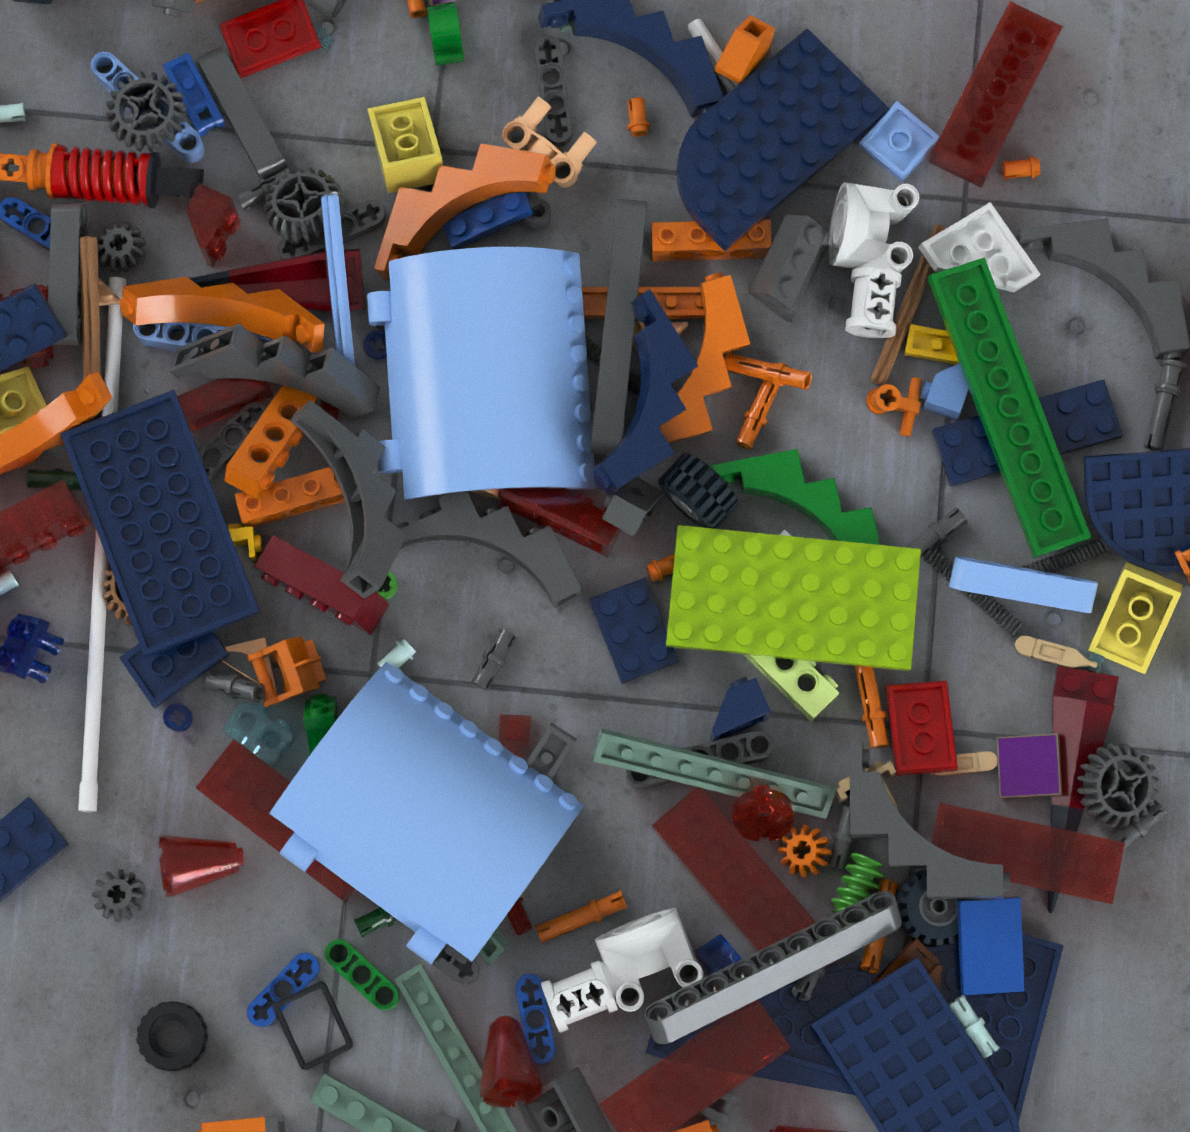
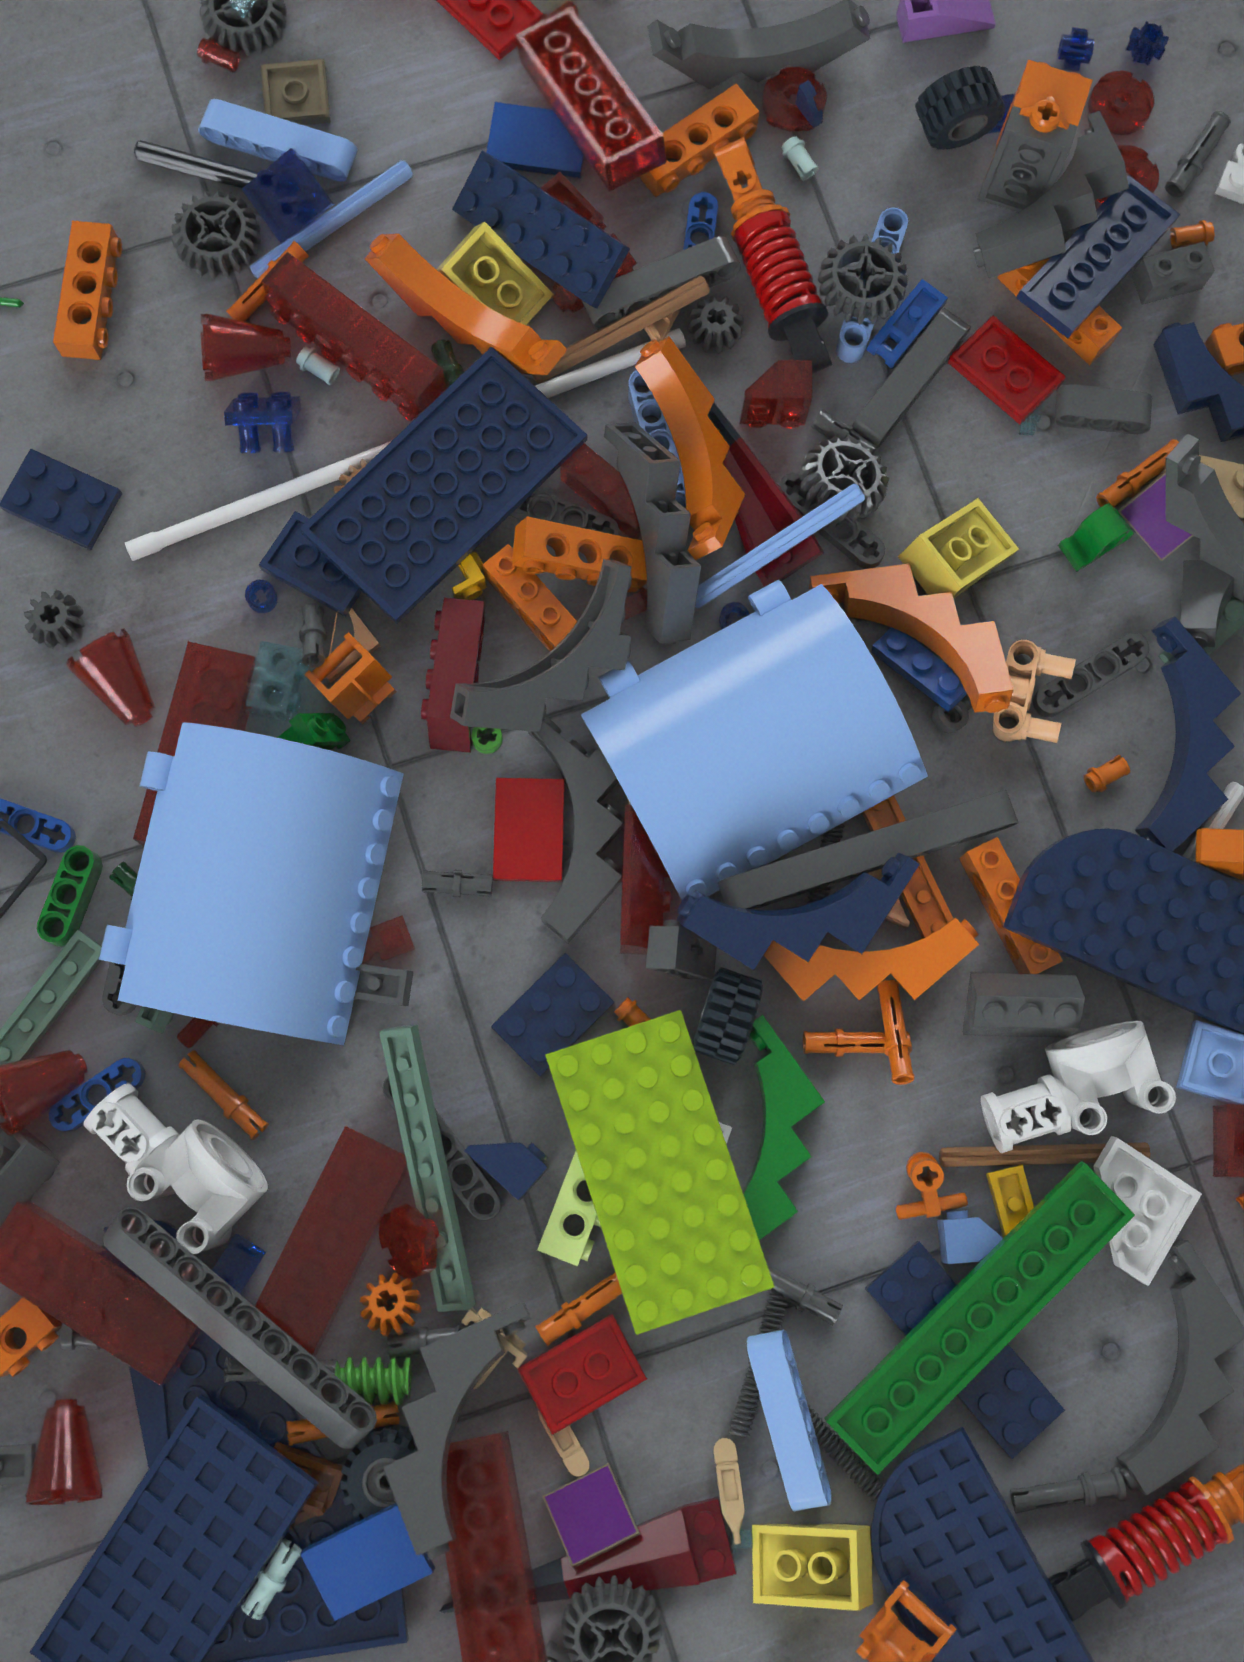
camera: 60 degrees right, 0 degrees up
(399, 654) = (418, 784): light aqua pin -> none
(475, 584) = (528, 830): none -> red tile

